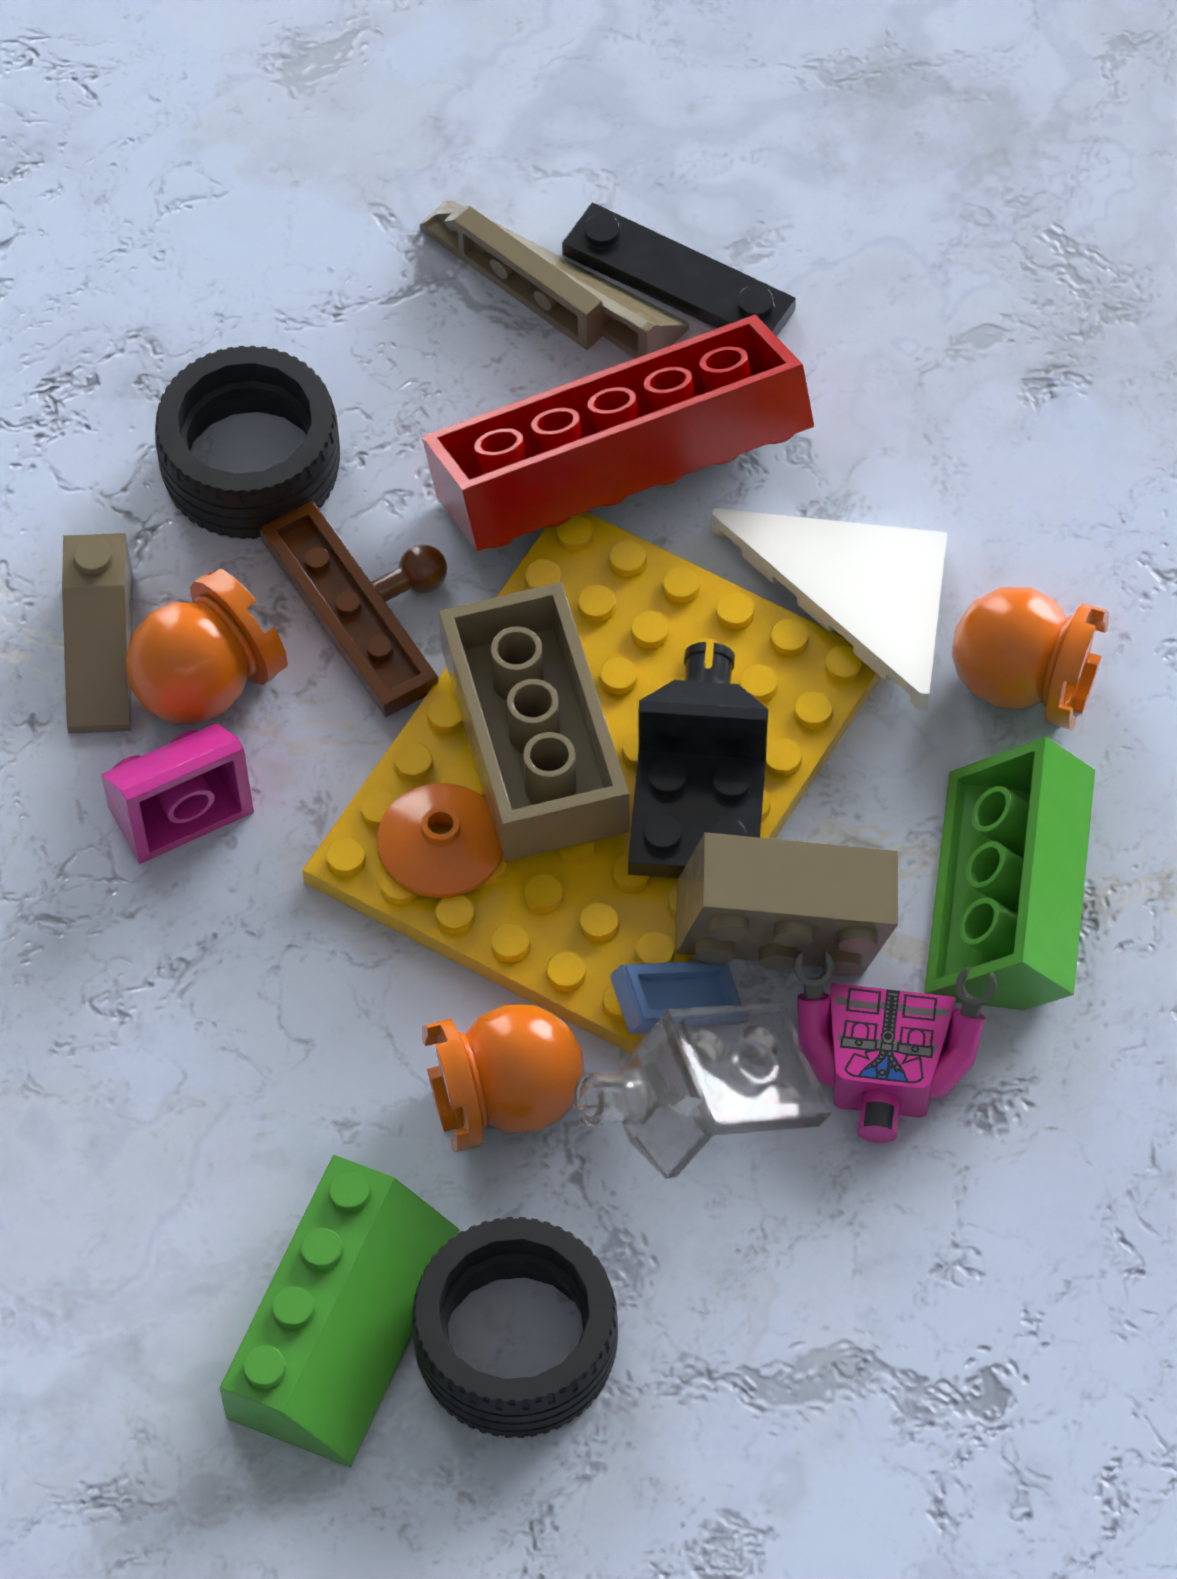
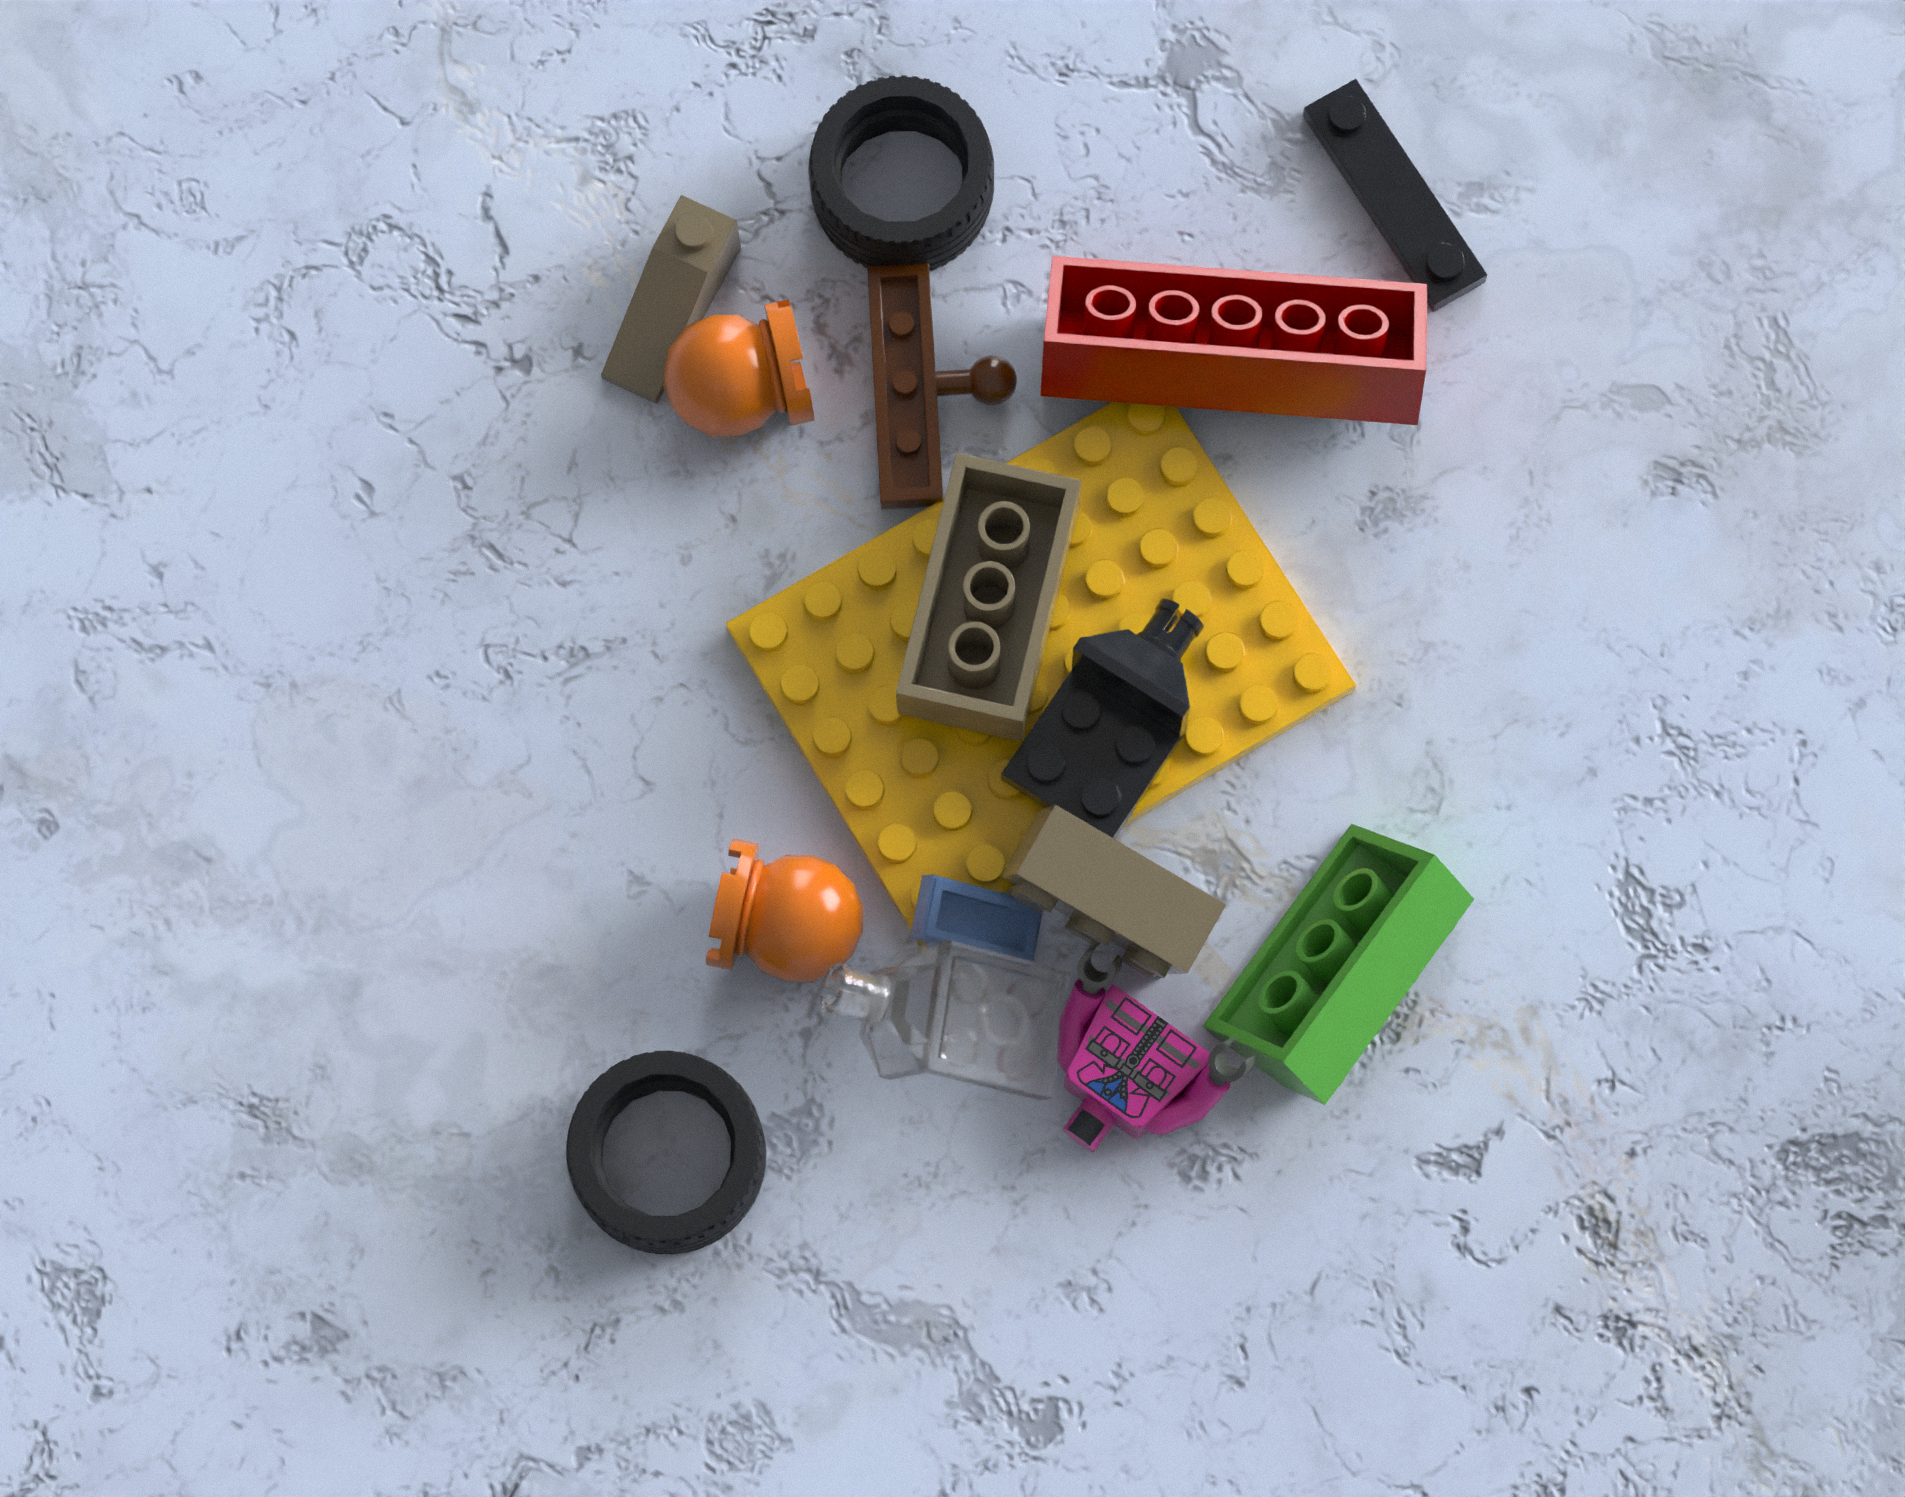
camera: 30 degrees right, 15 degrees up
(179, 791) = (655, 491): dark pink slope -> none
(336, 1314) = (530, 1055): bright green slope -> none
(434, 862) = (846, 689): orange dish -> none
(552, 286) = (1277, 147): dark tan wedge -> none
(855, 578) = (1373, 600): white tile -> none
(1025, 652) = (1478, 751): orange tile -> none

